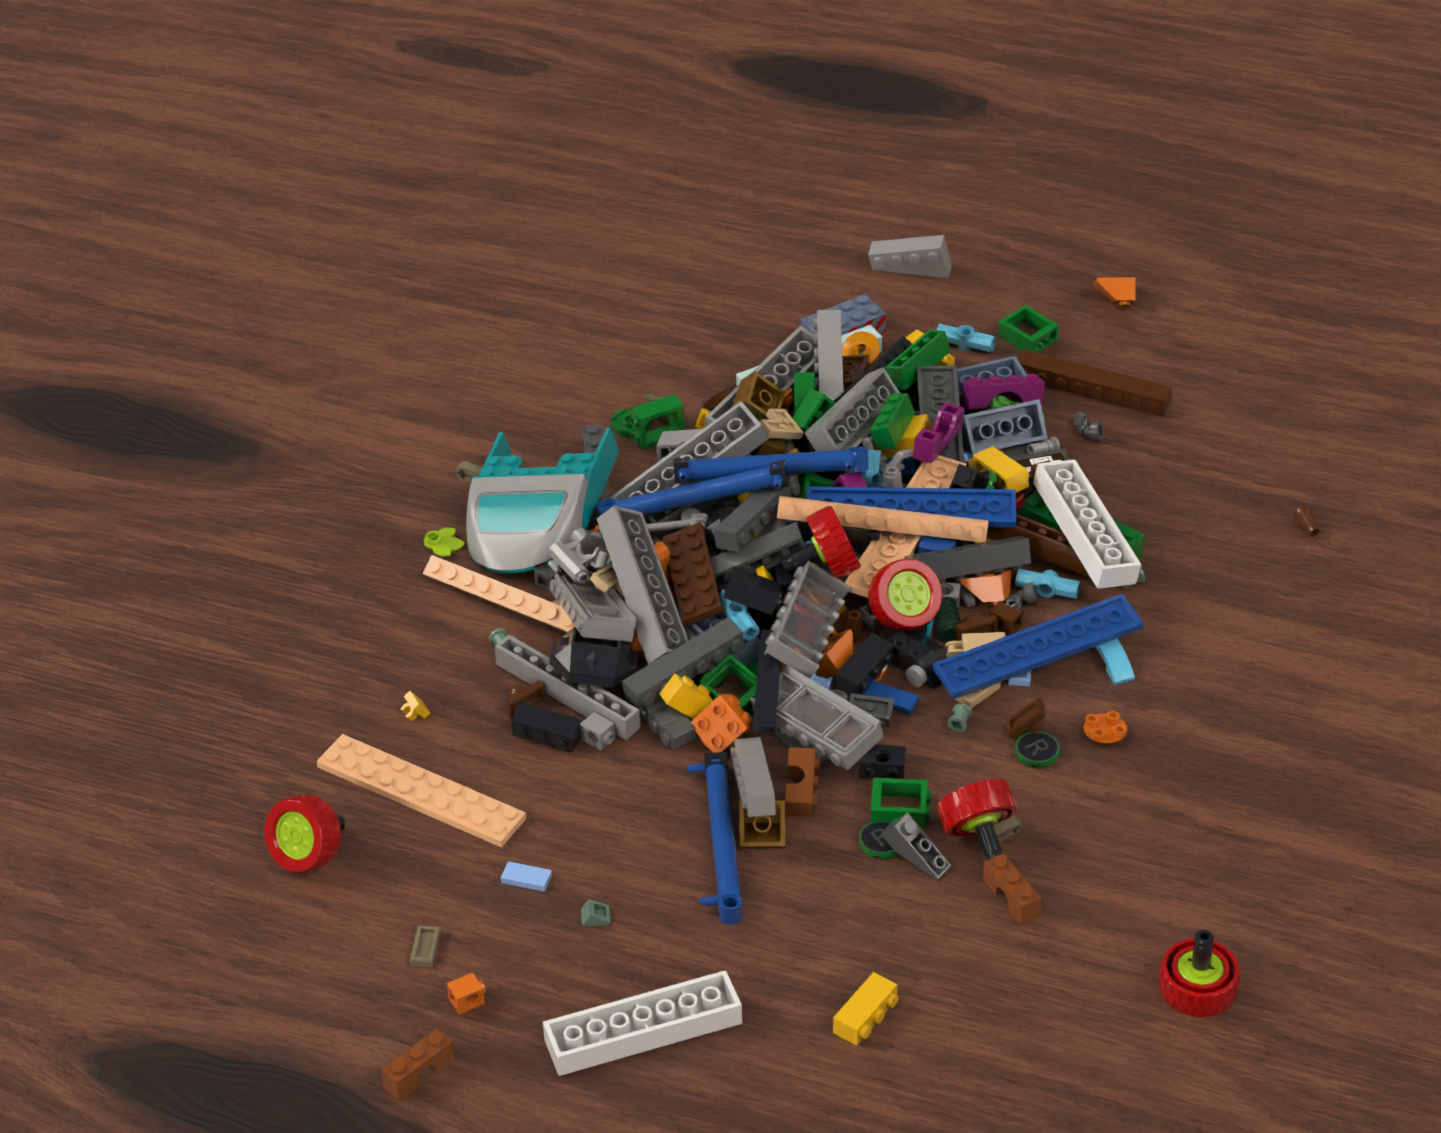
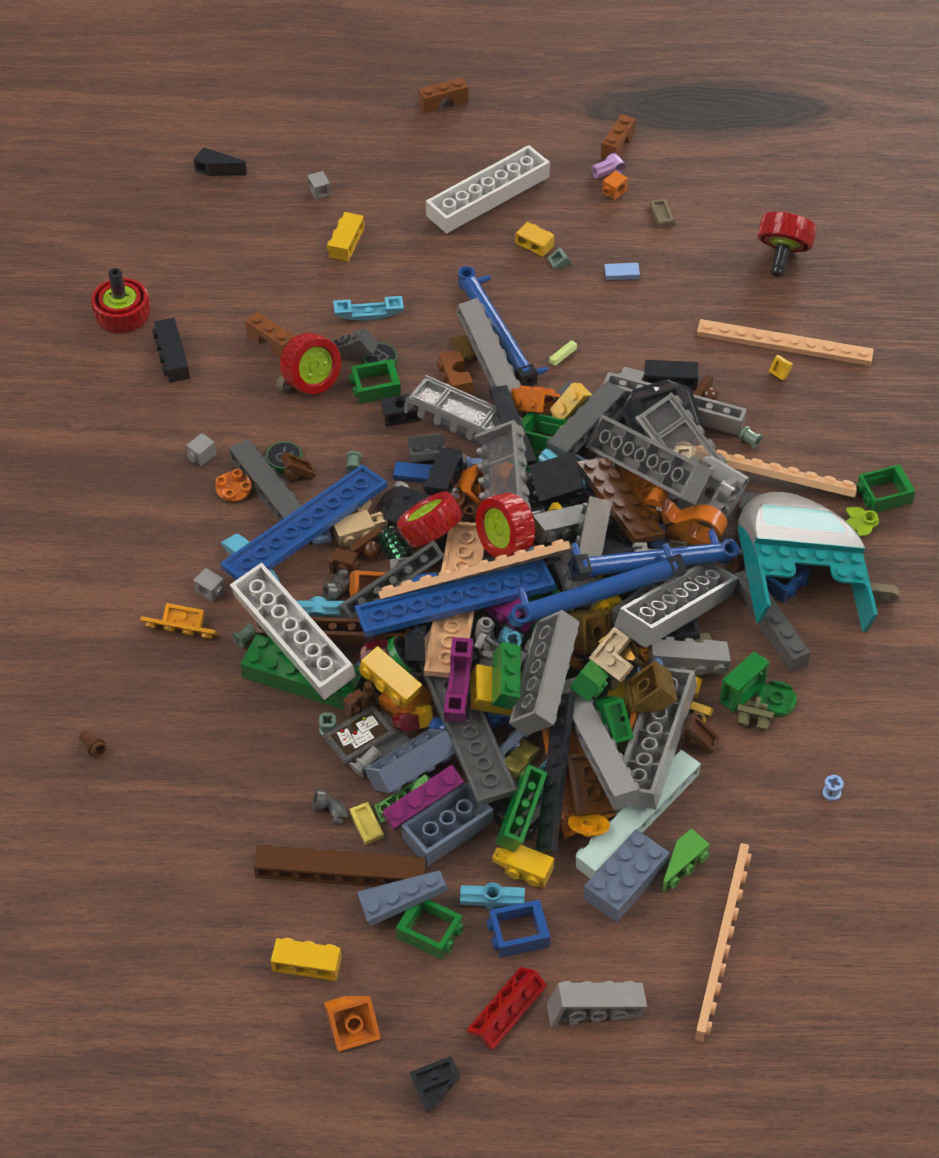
camera: 160 degrees right, 10 degrees up
(387, 740) = (785, 342): none -> light nougat plate
(397, 547) = (892, 473): none -> green window
(422, 790) = (735, 311): light nougat plate -> none
(457, 1026) = (612, 163): none -> lavender piece
(615, 941) = (534, 239): none -> yellow brick
(627, 345) = (836, 789): none -> light blue bush
(657, 789) = (562, 353): none -> yellowish green axle
(778, 329) = (686, 855): none -> bright green slope
(784, 275) = (722, 949): none -> light nougat plate
(872, 903) = (368, 311): none -> medium azure slope
(875, 1101) = (319, 185): none -> light grey brick
(952, 303) = (520, 945): none -> blue window
(980, 271) = (509, 1008): none -> red fence
(1046, 342) = (393, 898): none -> sand blue wing
(1057, 414) = (366, 823): none -> light yellow tile
(1059, 247) = (434, 1081): none -> black wing
(1067, 717) = (264, 479): none -> dark grey brick
(1134, 772) = (201, 449): none -> light grey brick
(1141, 331) = (306, 959): none -> yellow brick
(1144, 904) = (171, 350): none -> black brick
(1158, 629) = (209, 585): none -> light grey brick
(1197, 601) = (181, 618): none -> light orange bracket

